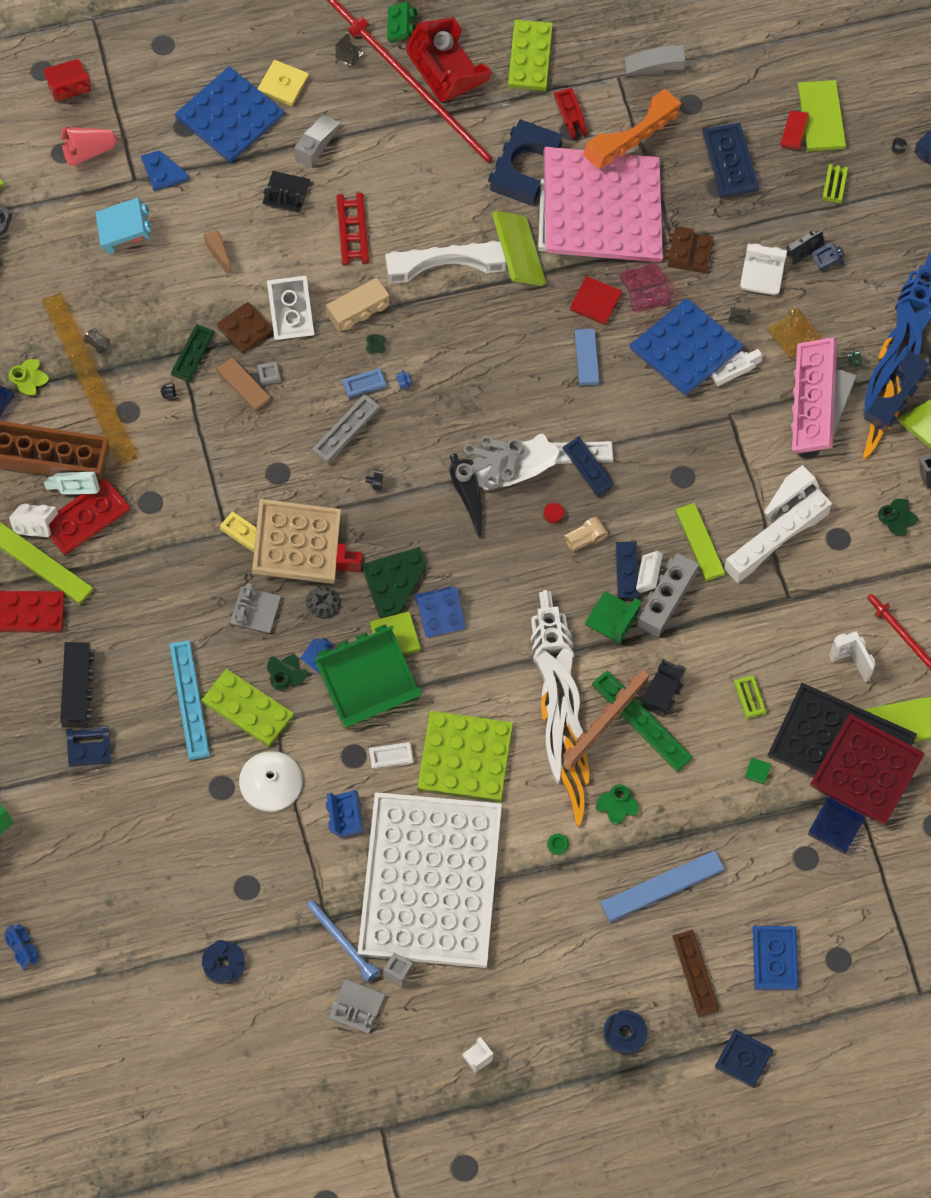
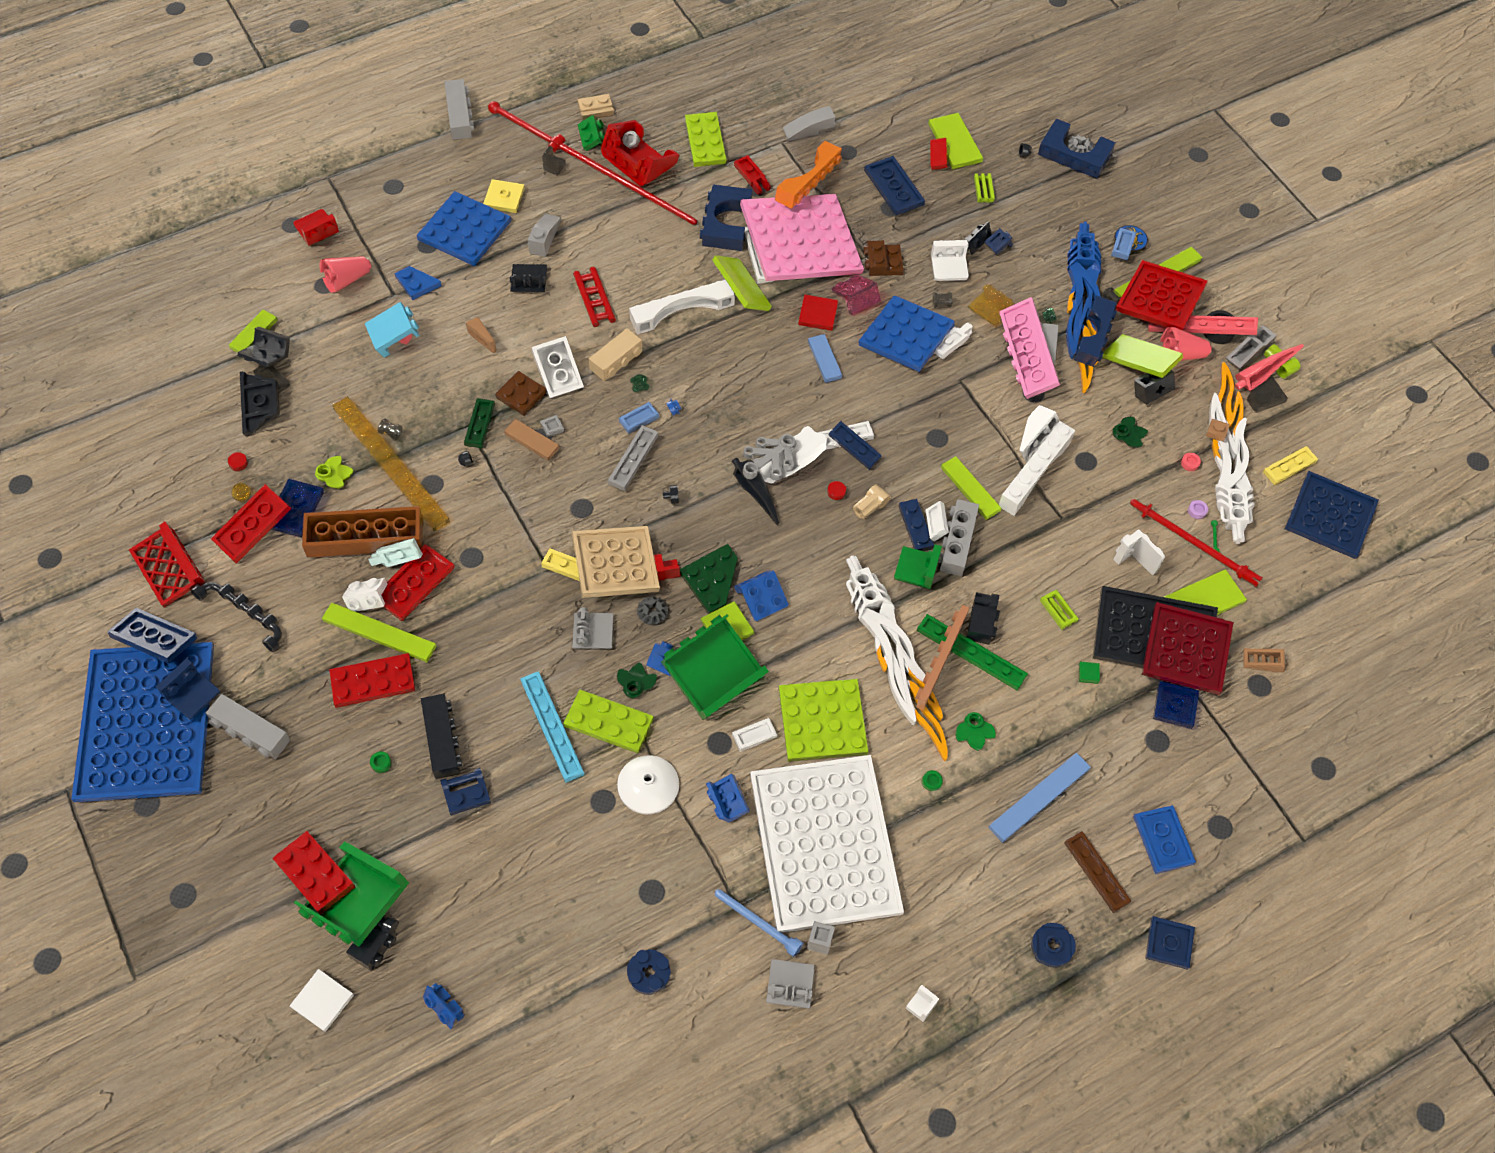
camera: 15 degrees left, 5 degrees down
(12, 697) = (380, 762): none -> green tile

